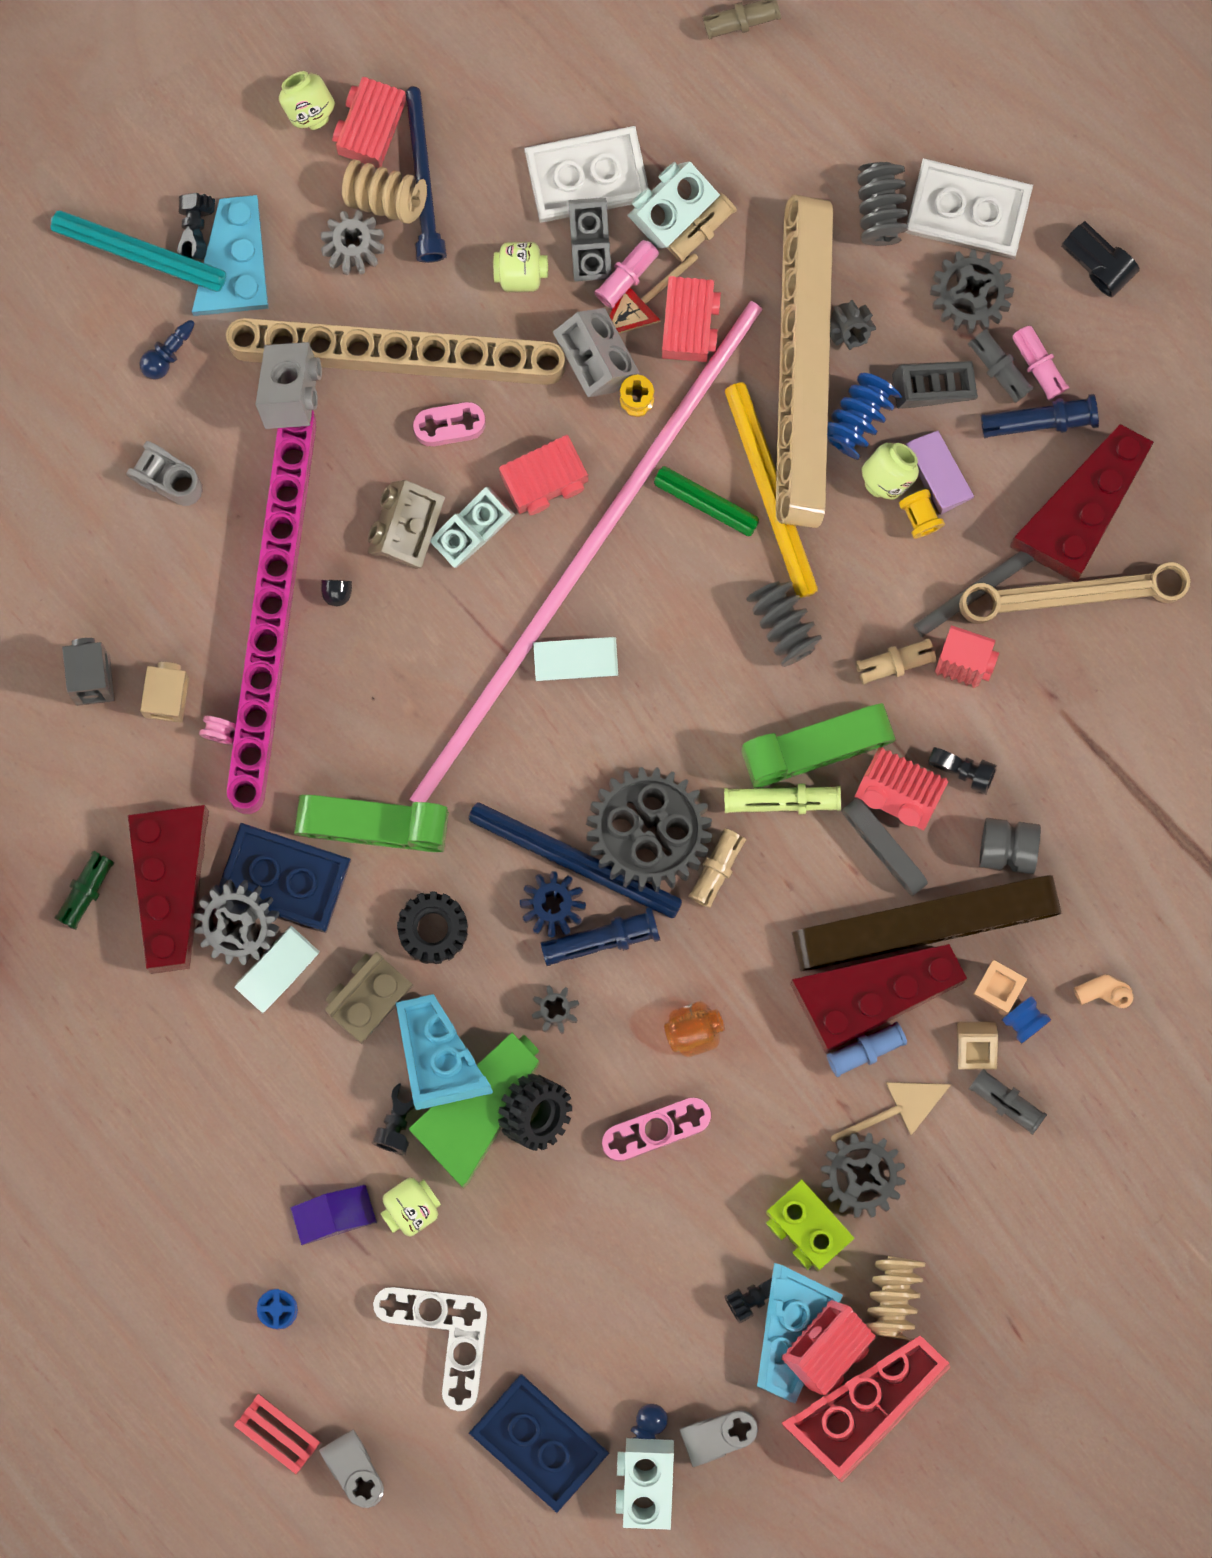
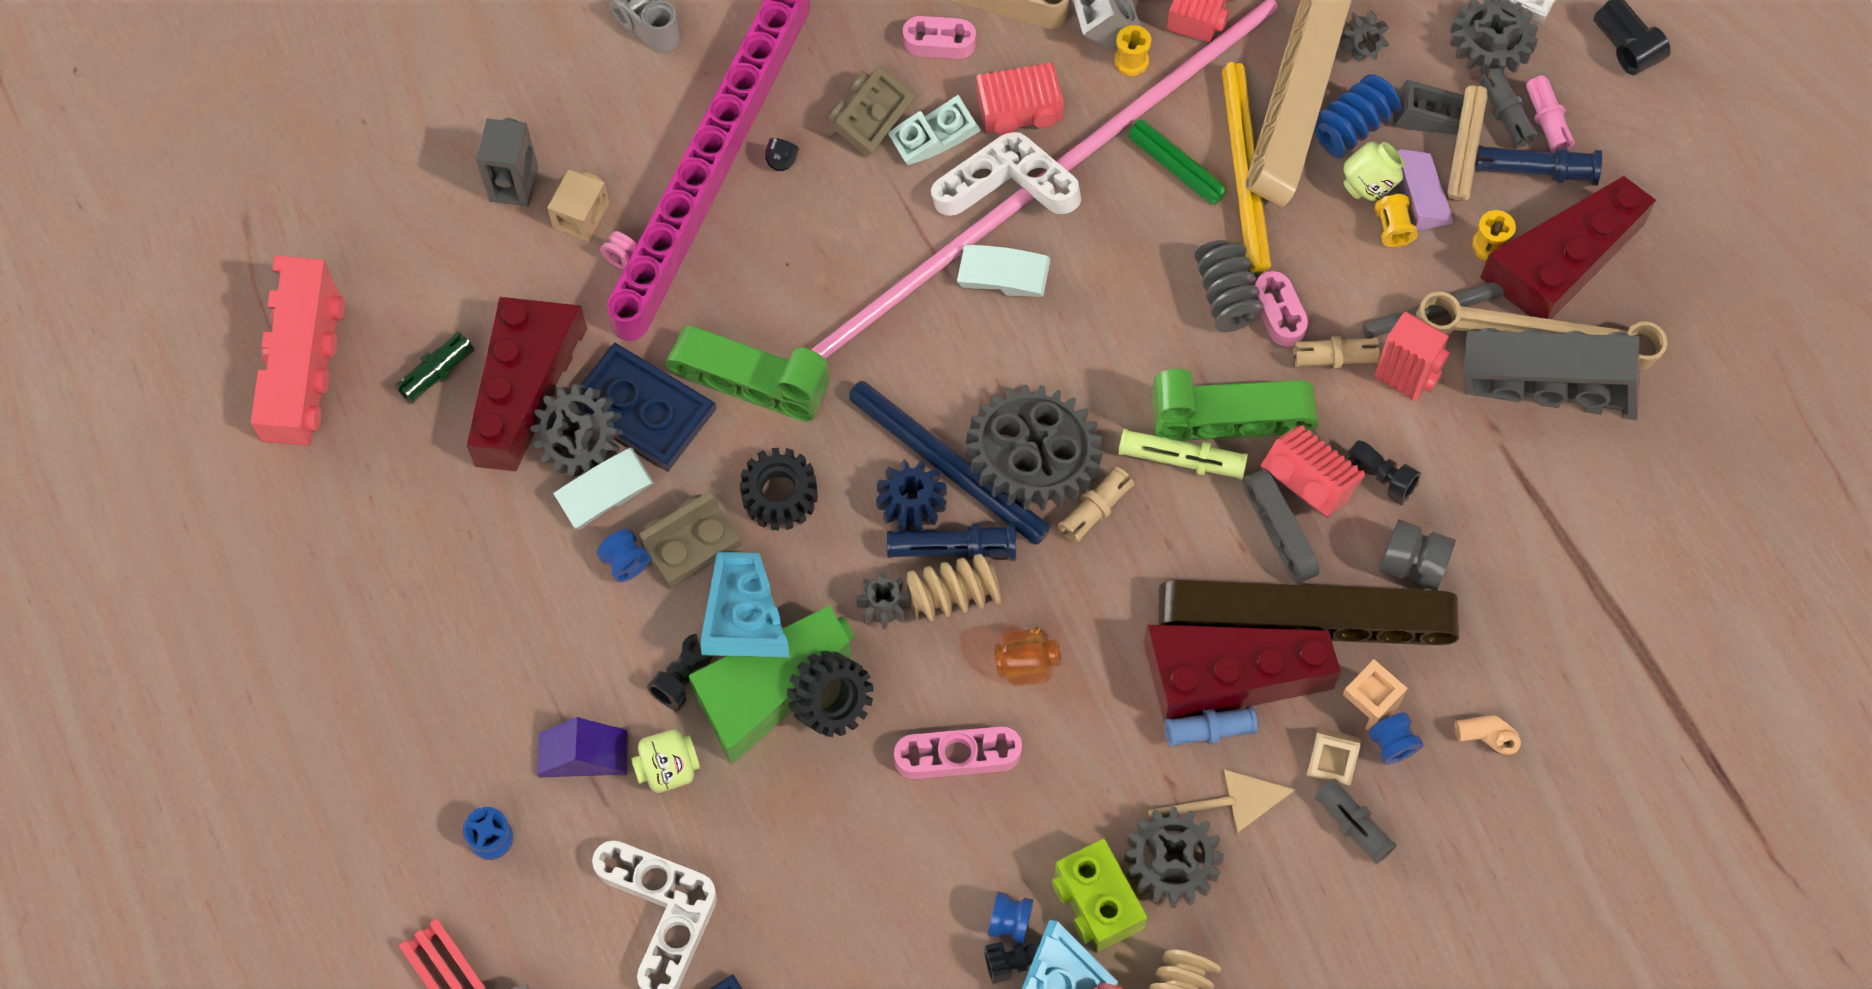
camera: 15 degrees right, 15 degrees down
(314, 1028) = (623, 555): none -> blue wheel
(548, 551) = (960, 190): none -> white beam
(613, 983) = (952, 587): none -> tan piece
(739, 1264) = (1010, 917): none -> blue wheel
(843, 624) = (1287, 304): none -> bright pink beam
(970, 416) = (1467, 143): none -> tan axle
(1024, 504) = (1489, 234): none -> yellow bush
(1093, 632) = (1555, 368): none -> dark grey wedge

